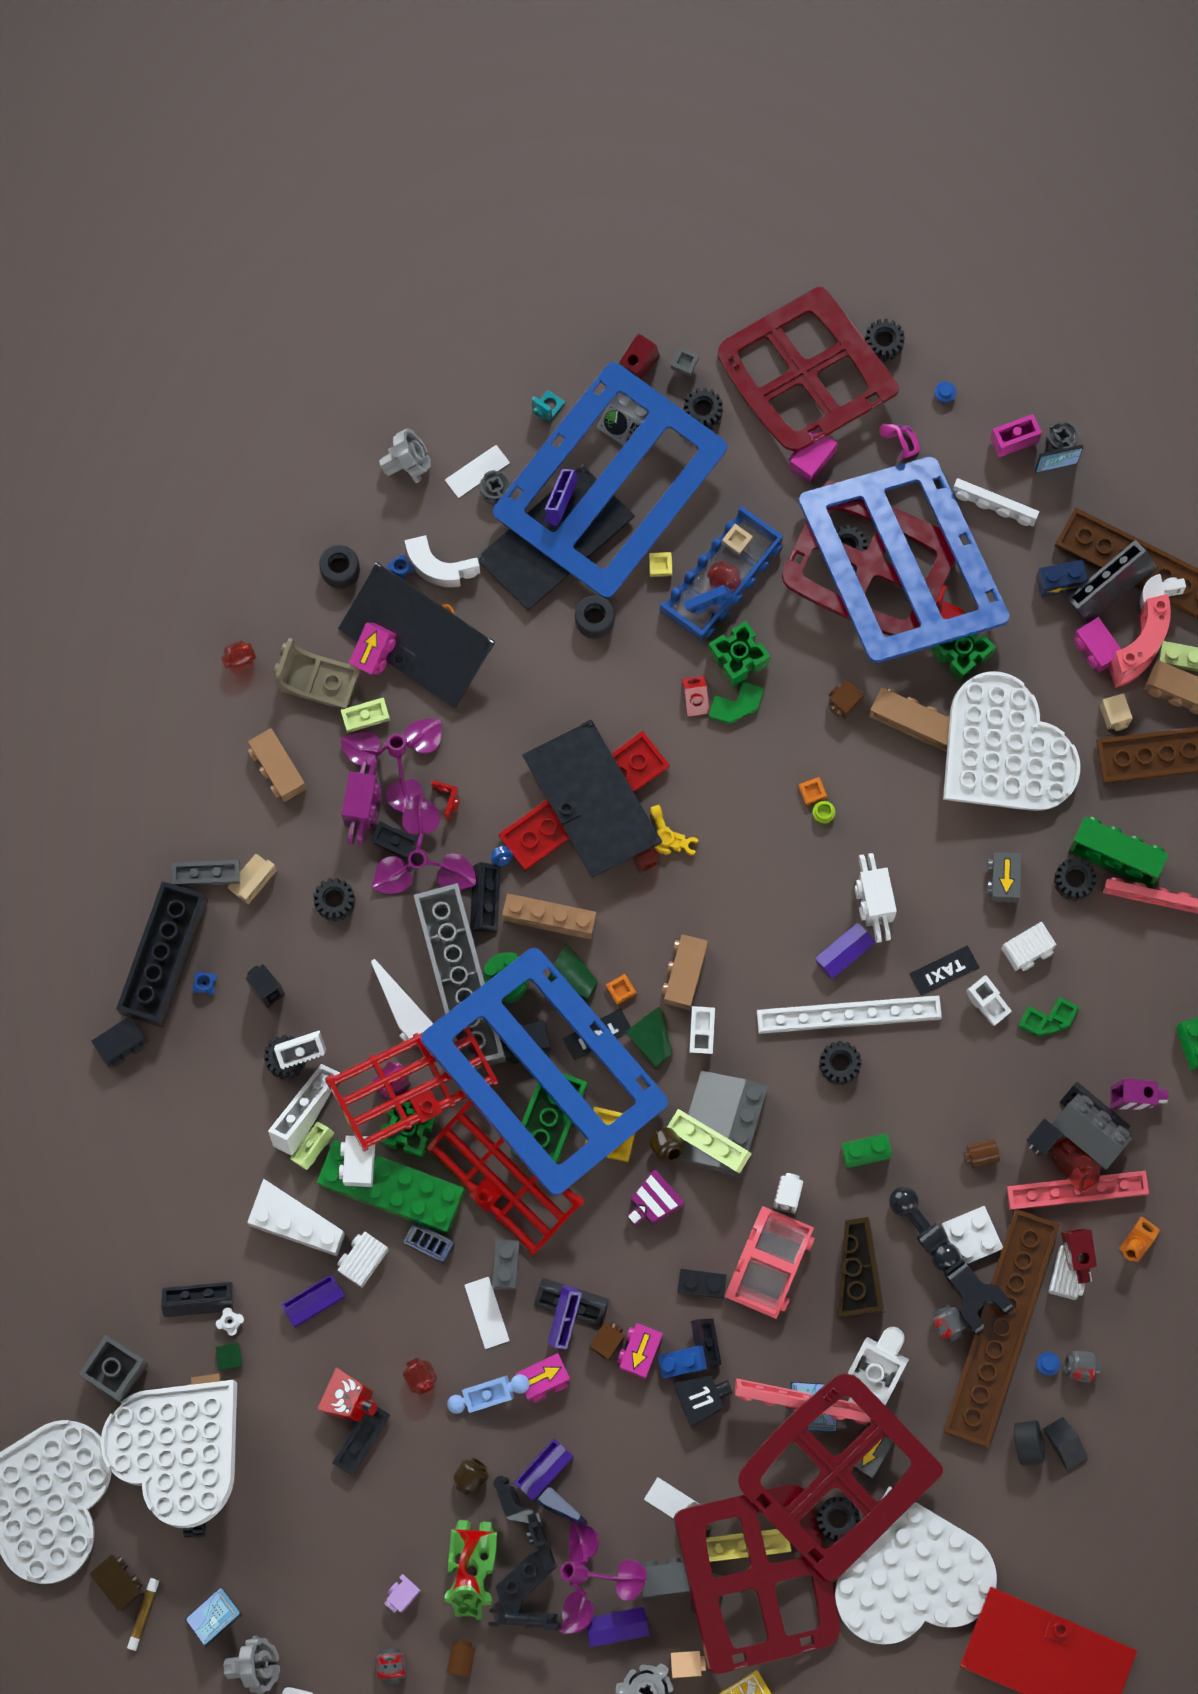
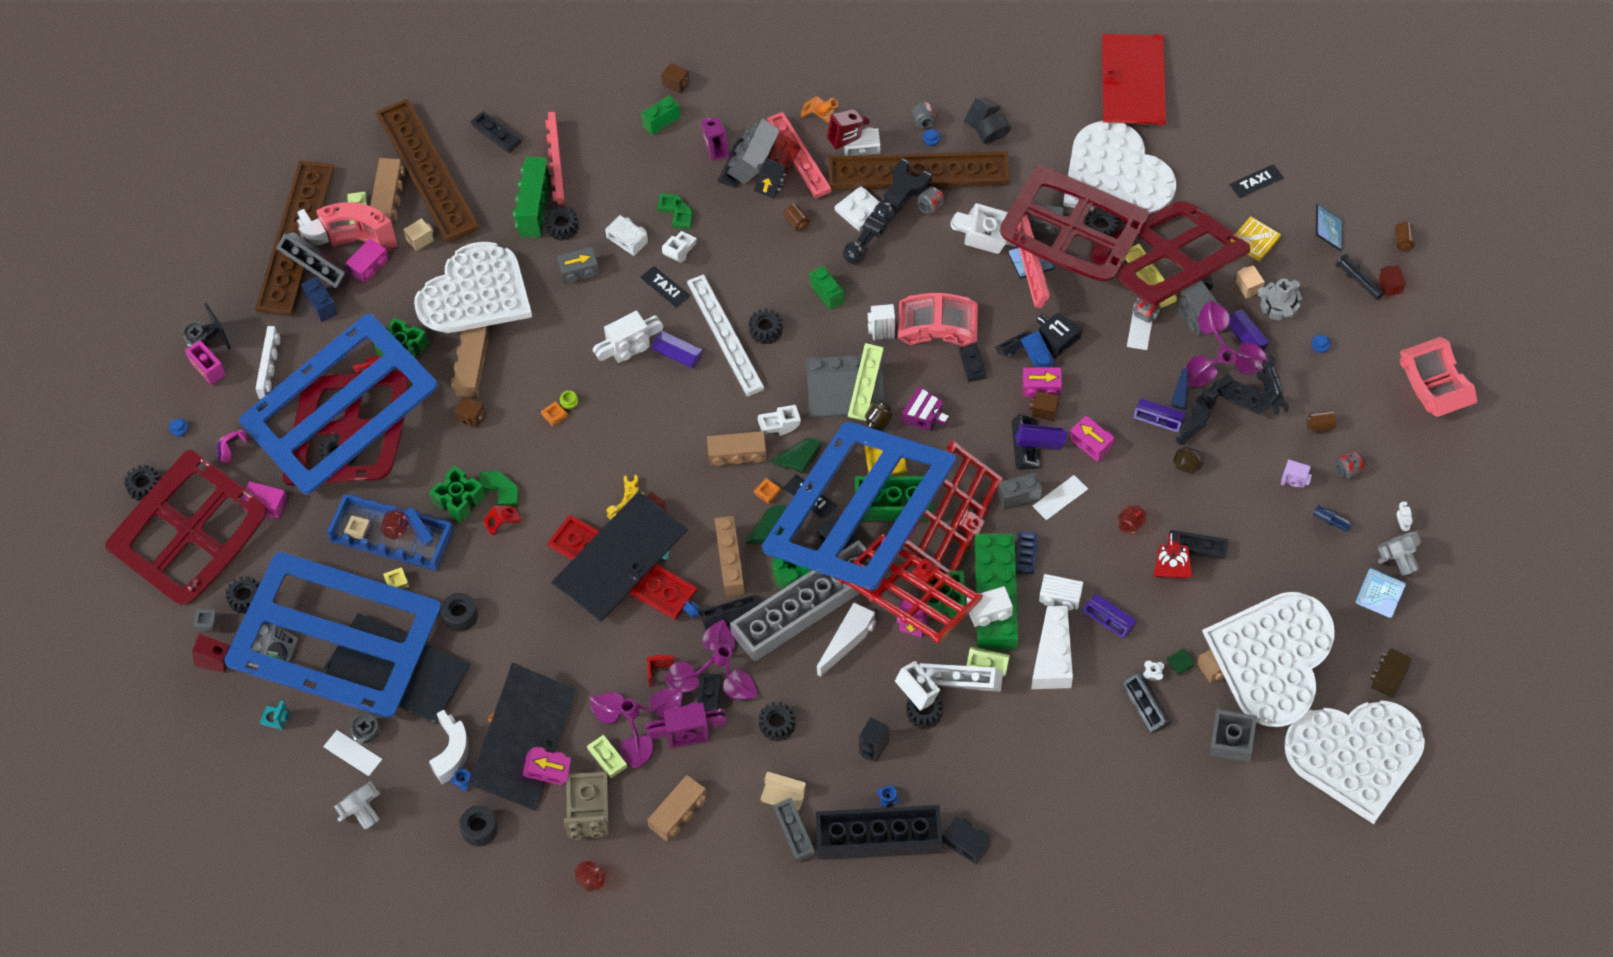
camera: 110 degrees left, 15 degrees down
(143, 1614) = (1404, 648): pearl gold bar -> none
(331, 1611) = (1332, 518): none -> dark blue axle
(468, 1591) = (1239, 440): bright green hips -> none
(488, 1394) = (1122, 469): light blue plate -> none
(566, 477) = (361, 664): dark purple piece -> none
(860, 1281) = (919, 262): dark brown wedge -> none

